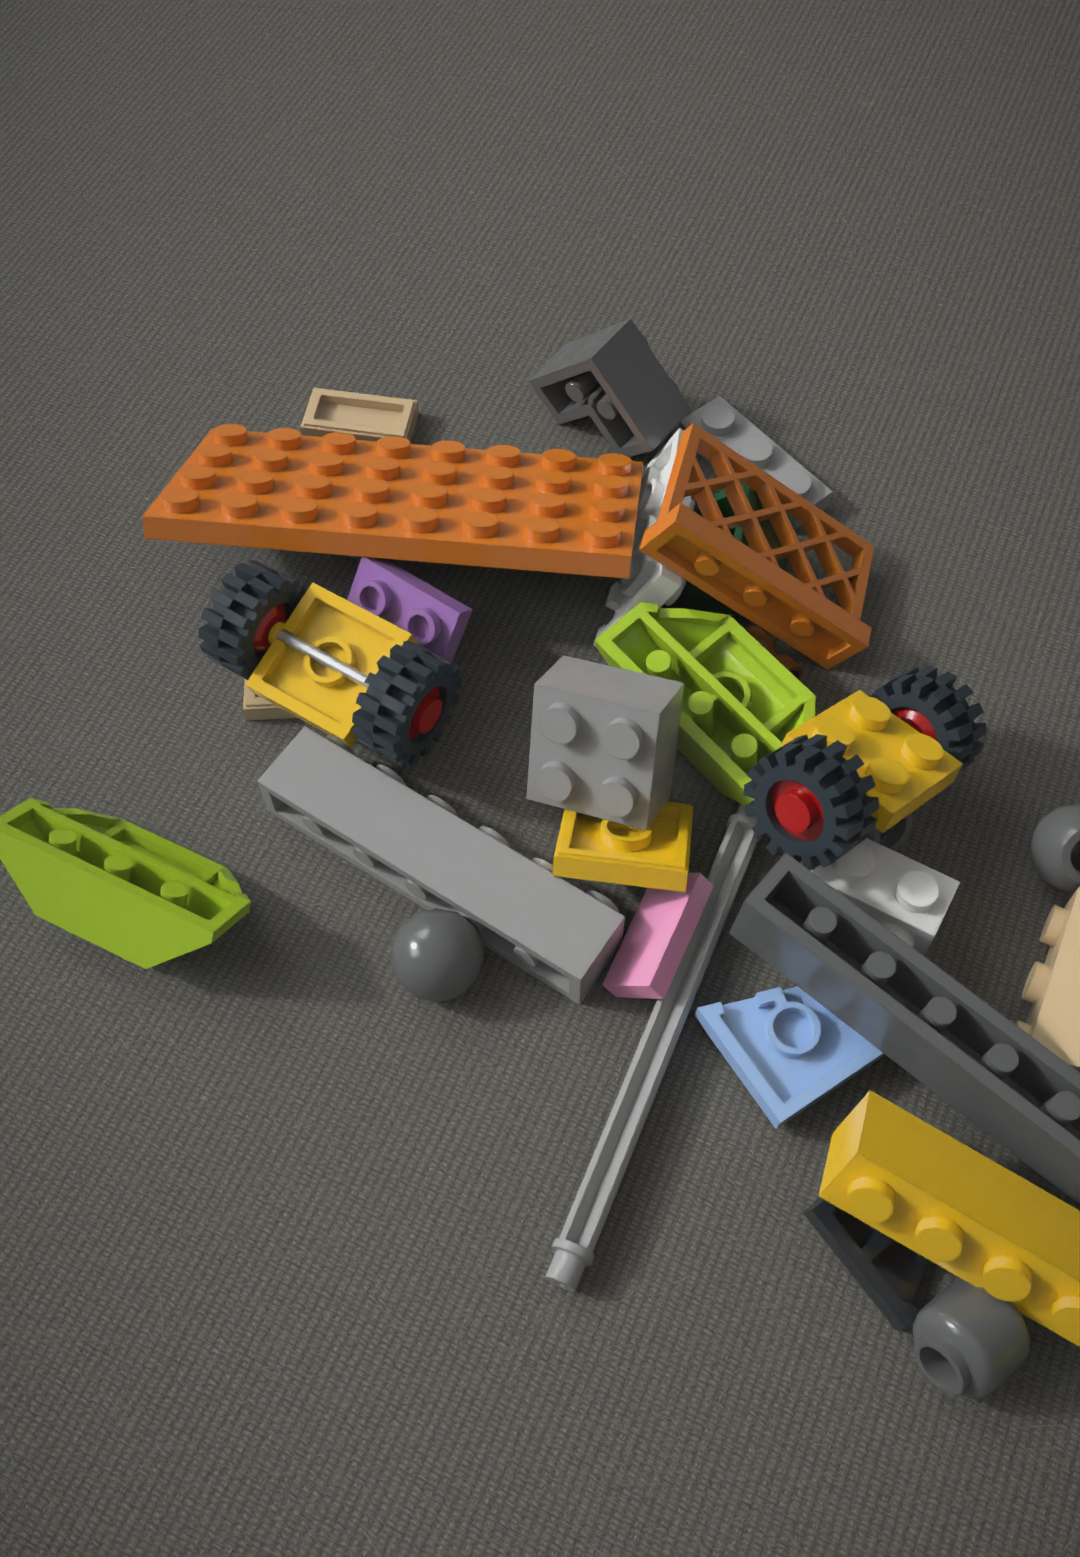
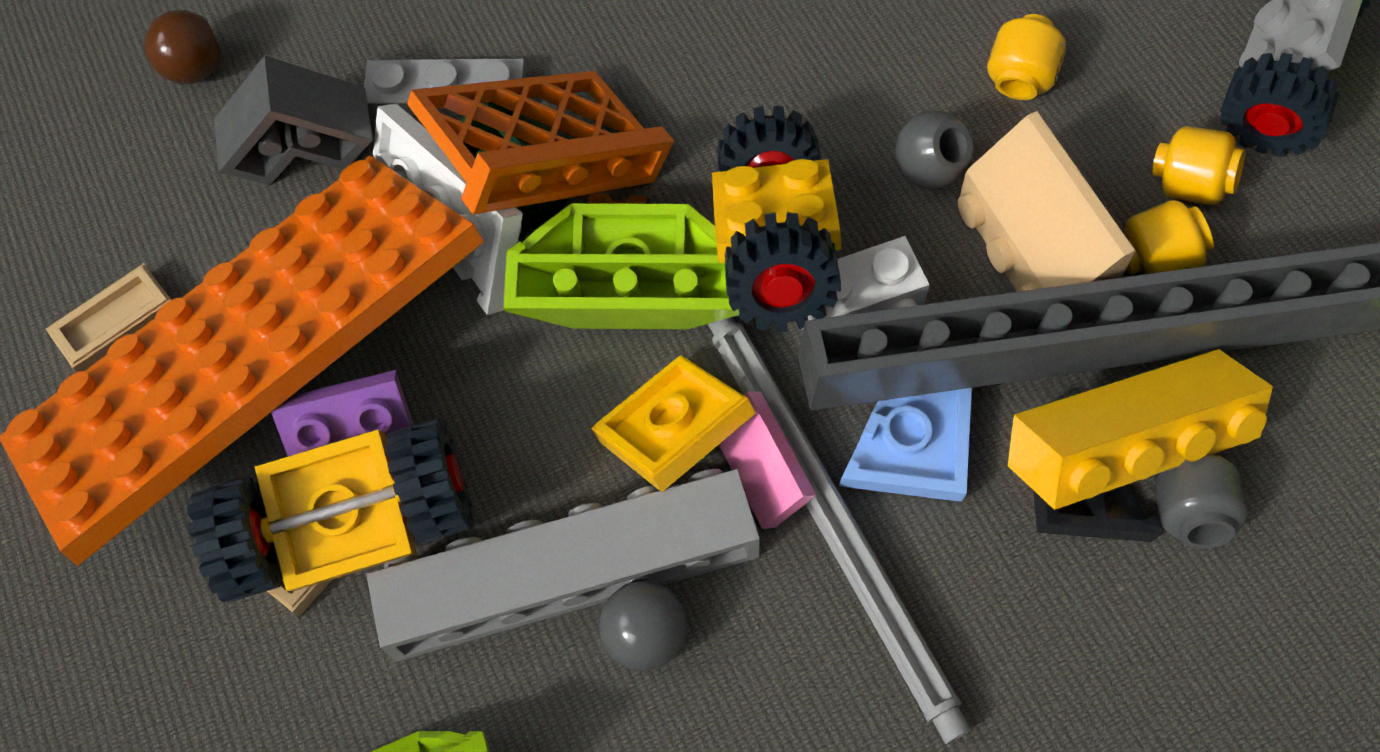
camera: 45 degrees left, 5 degrees up
(602, 278) = (182, 47): none -> reddish brown piece
(604, 741) = (591, 369): light grey brick -> none

